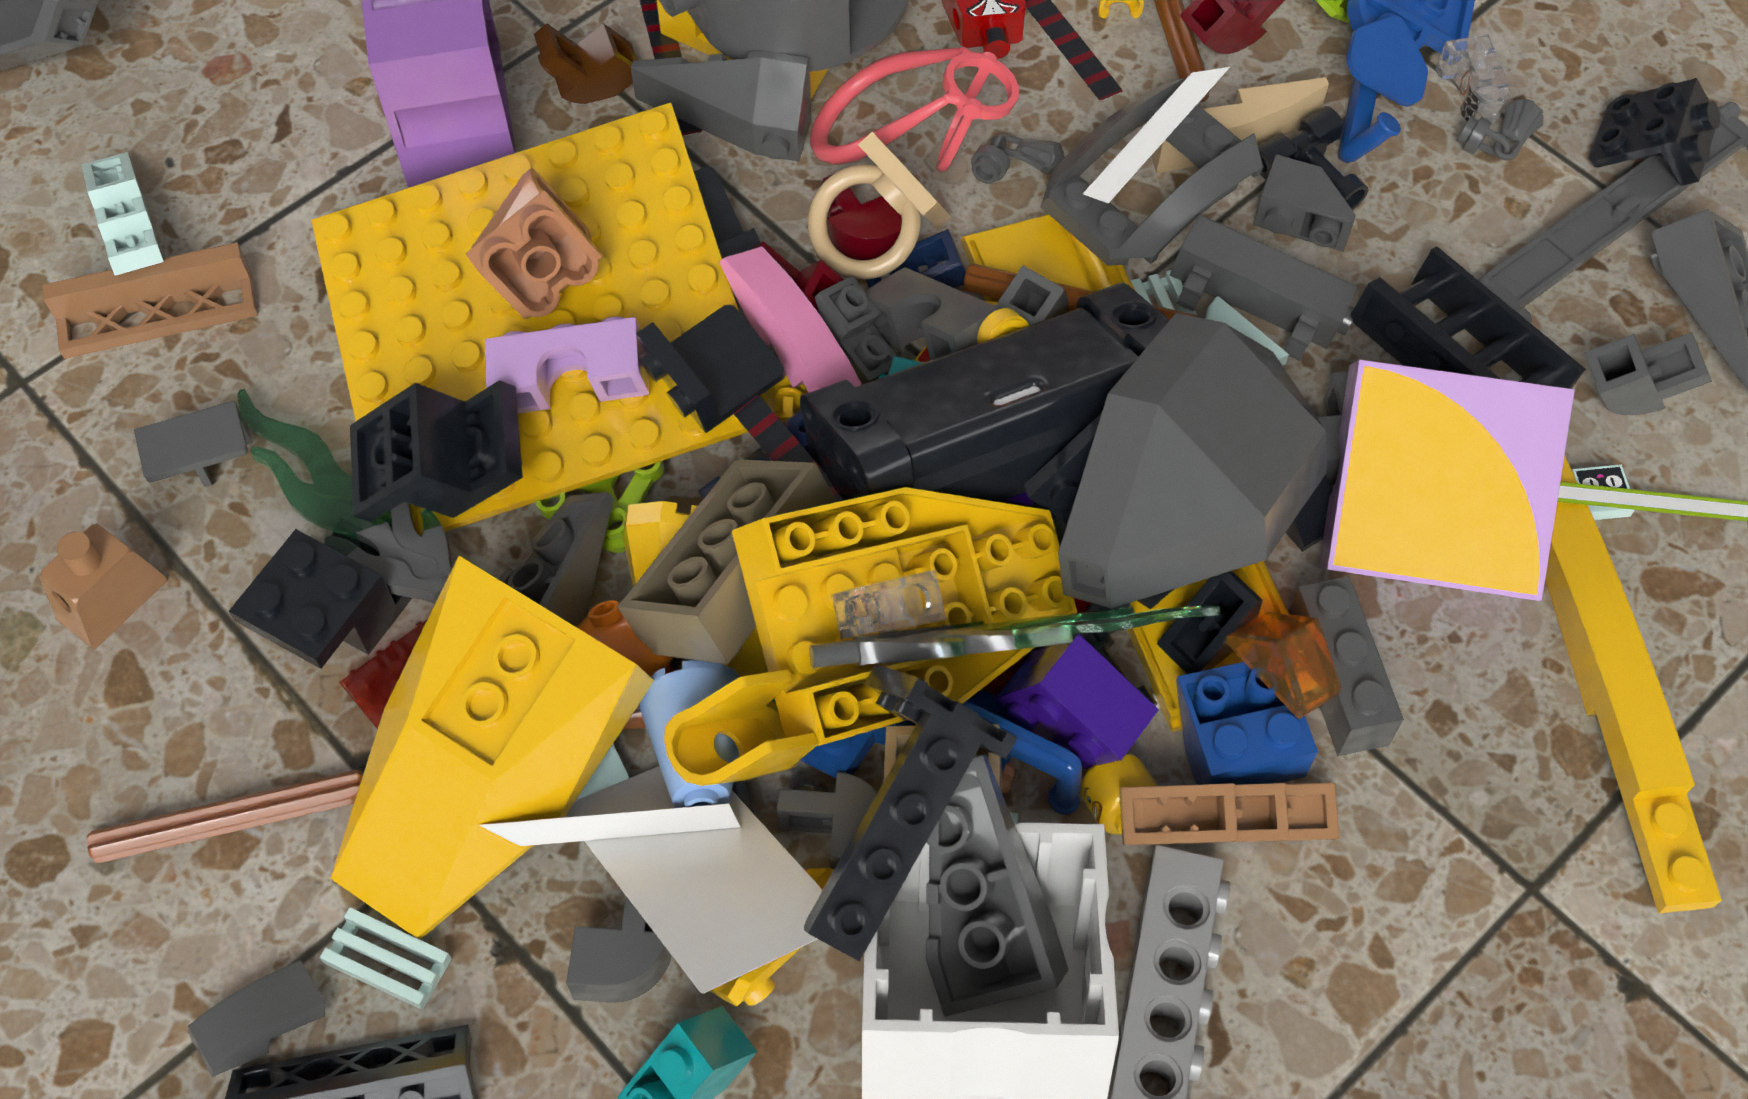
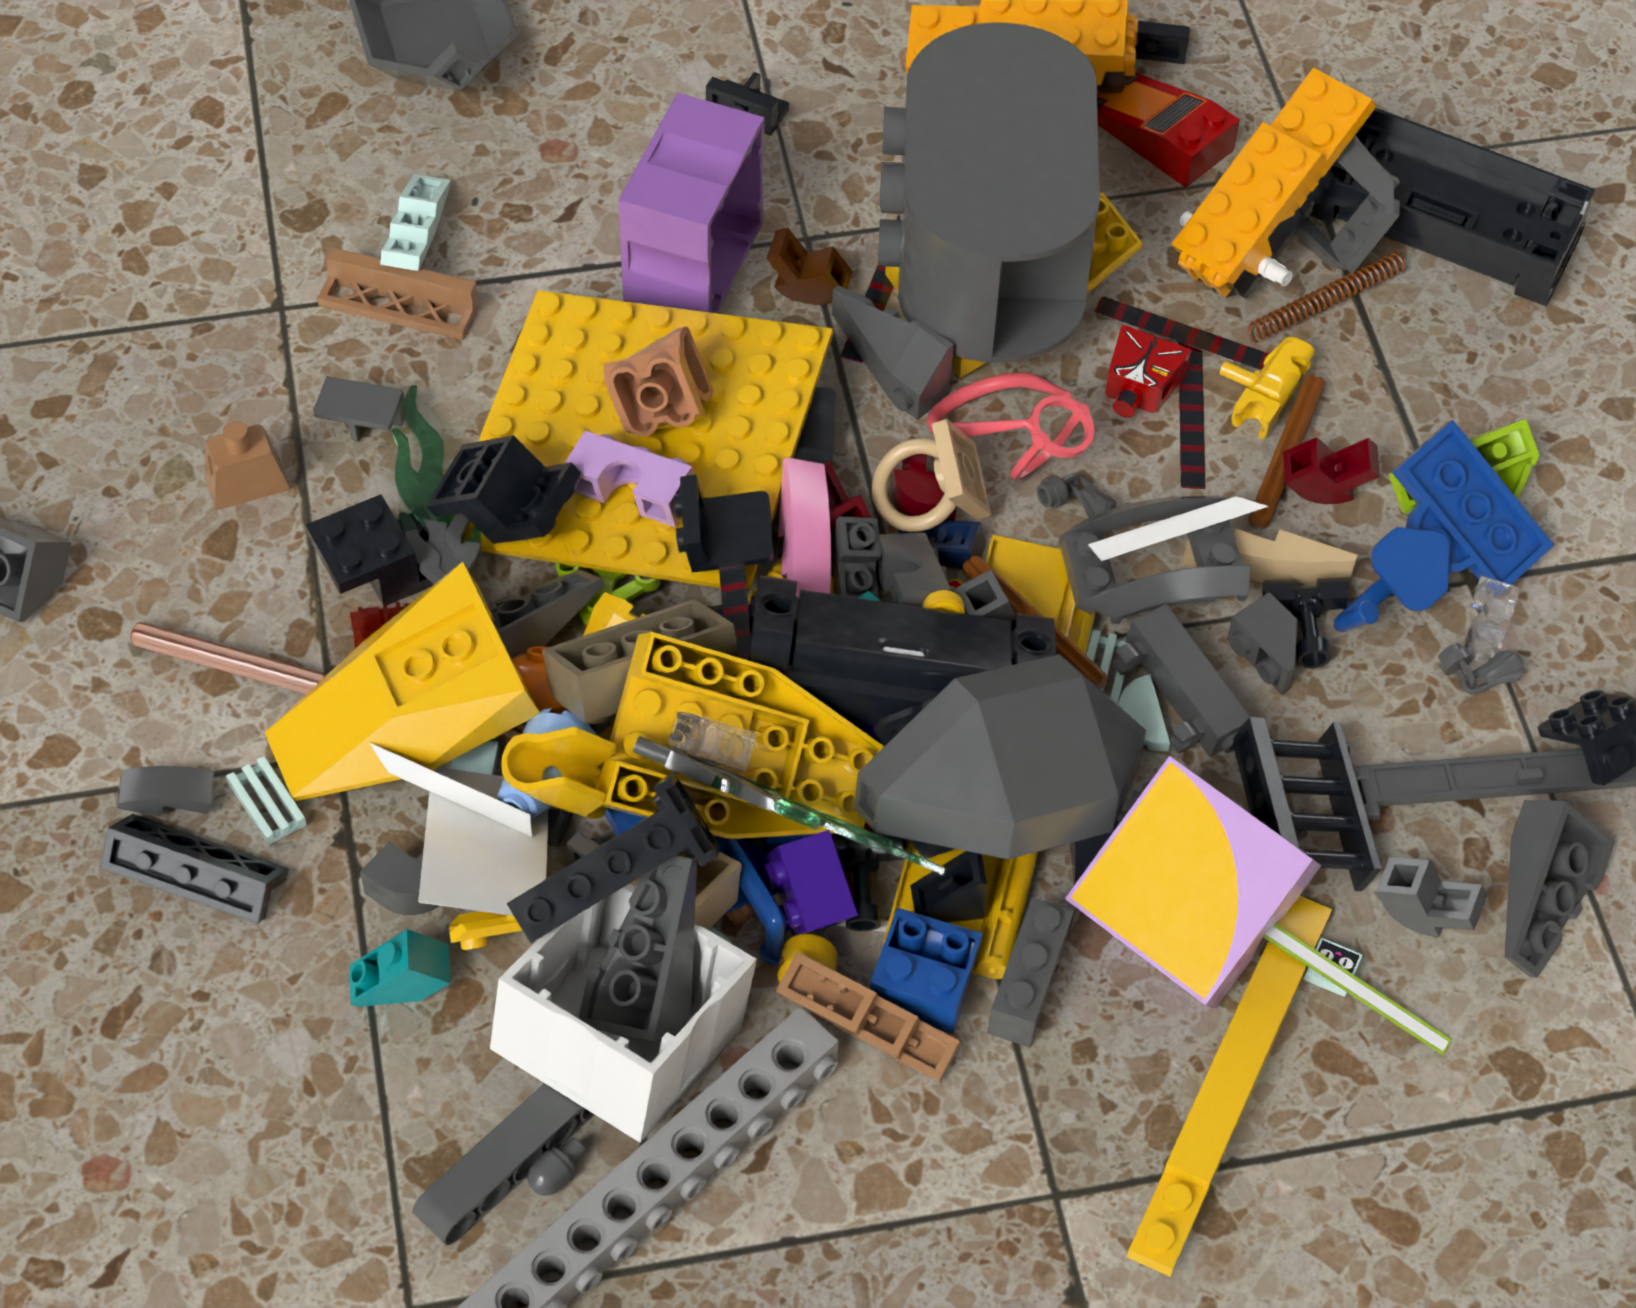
camera: 30 degrees right, 5 degrees down
(1289, 658) = (978, 938): clear orange slope -> none

